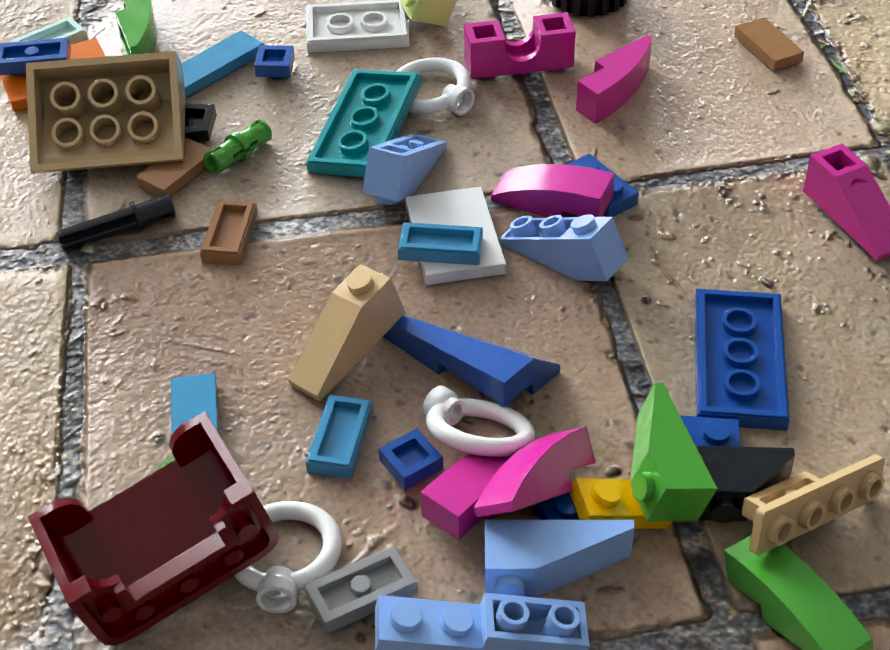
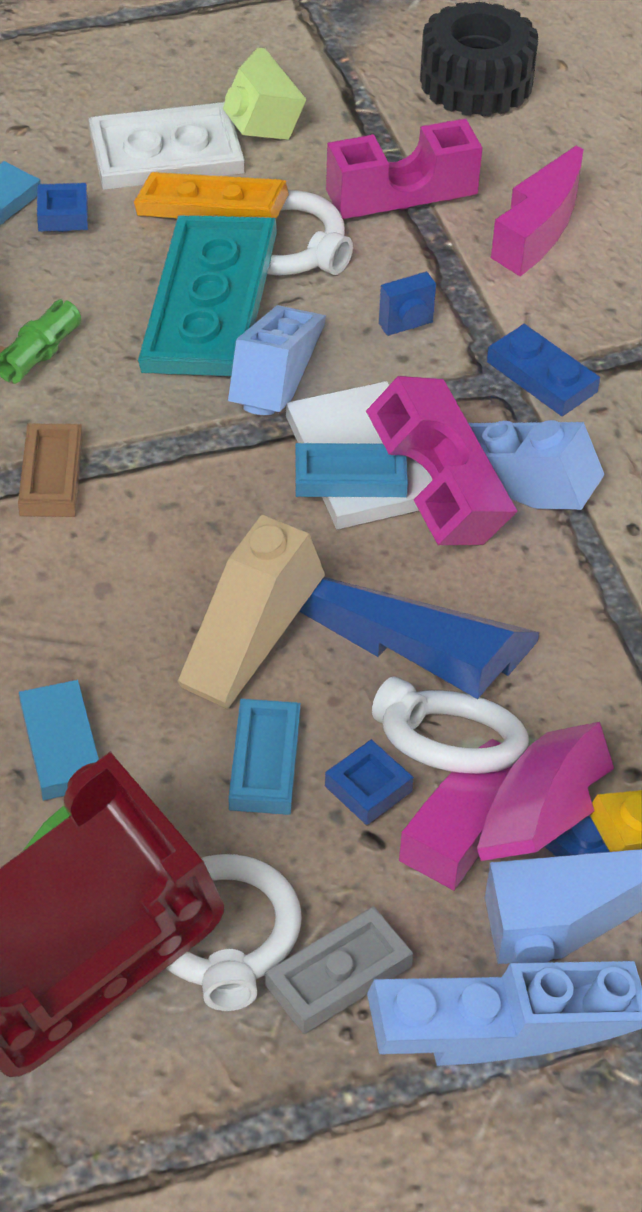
camera: 10 degrees left, 5 degrees up
(379, 57) = (209, 195): none -> light orange tile
(505, 135) = (407, 303): none -> blue plate
(518, 264) = (425, 423): none -> dark pink arch
(556, 190) = (499, 380): dark pink slope -> none

